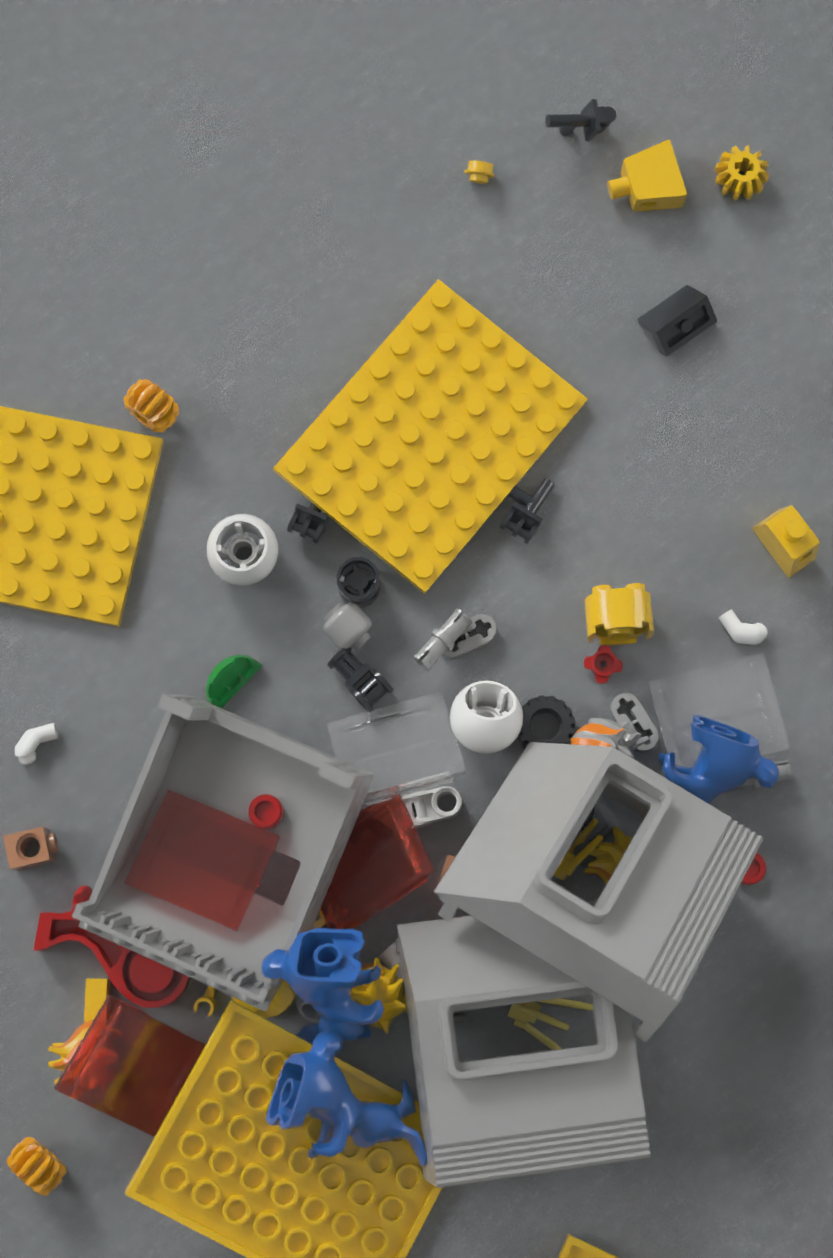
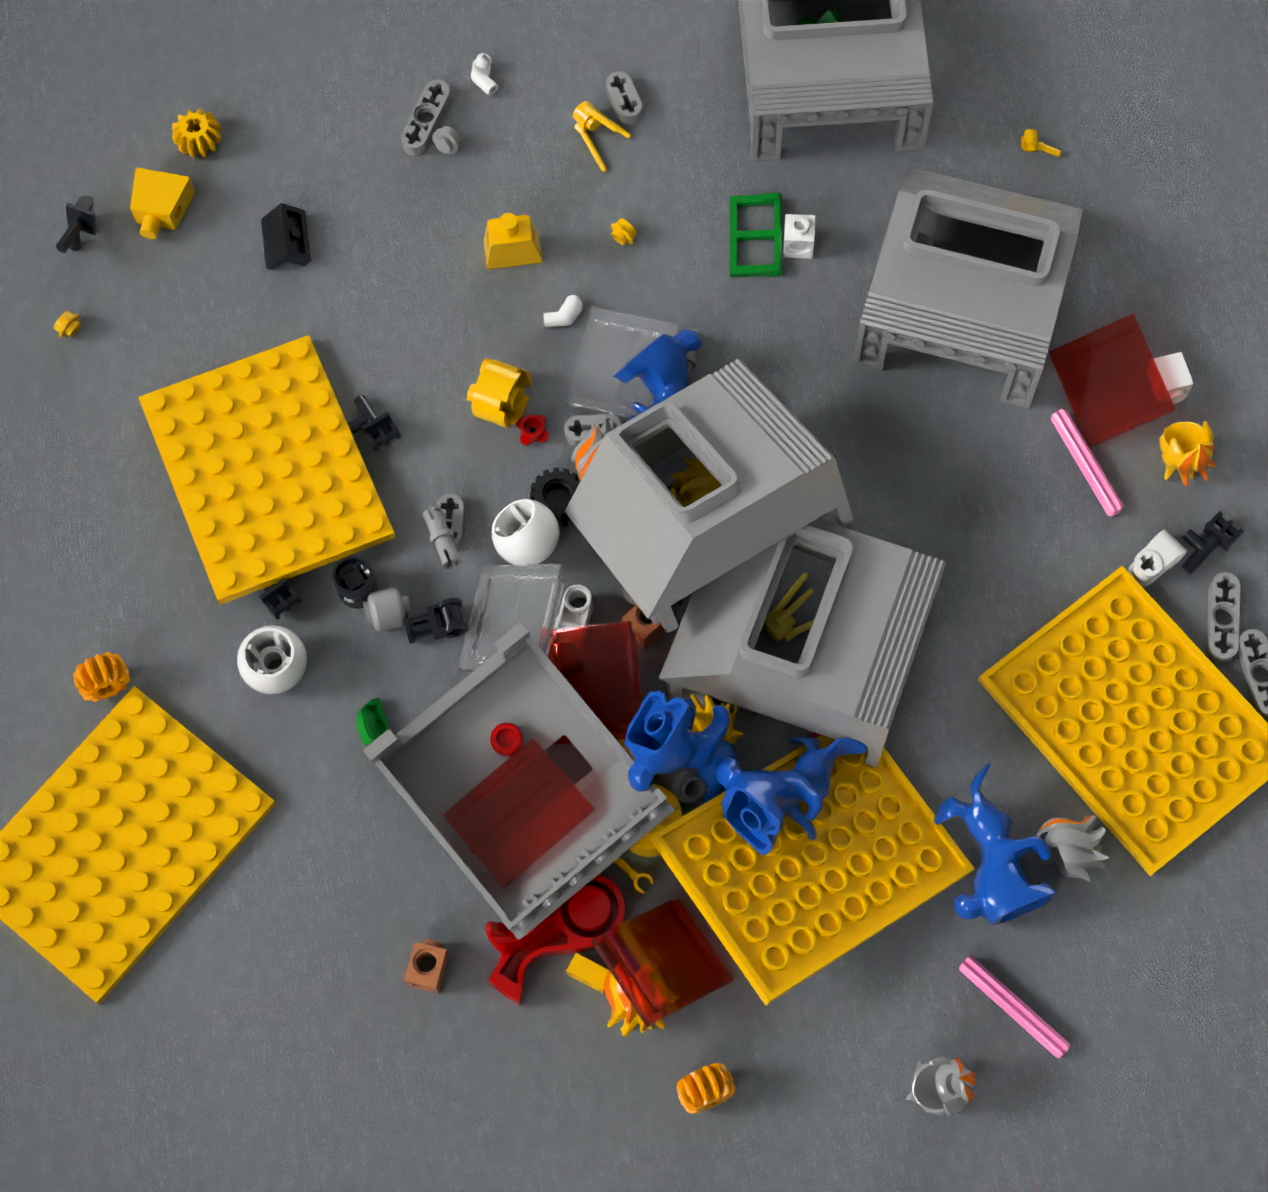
camera: 60 degrees left, 10 degrees down
(31, 739) = (333, 924): white arm -> none

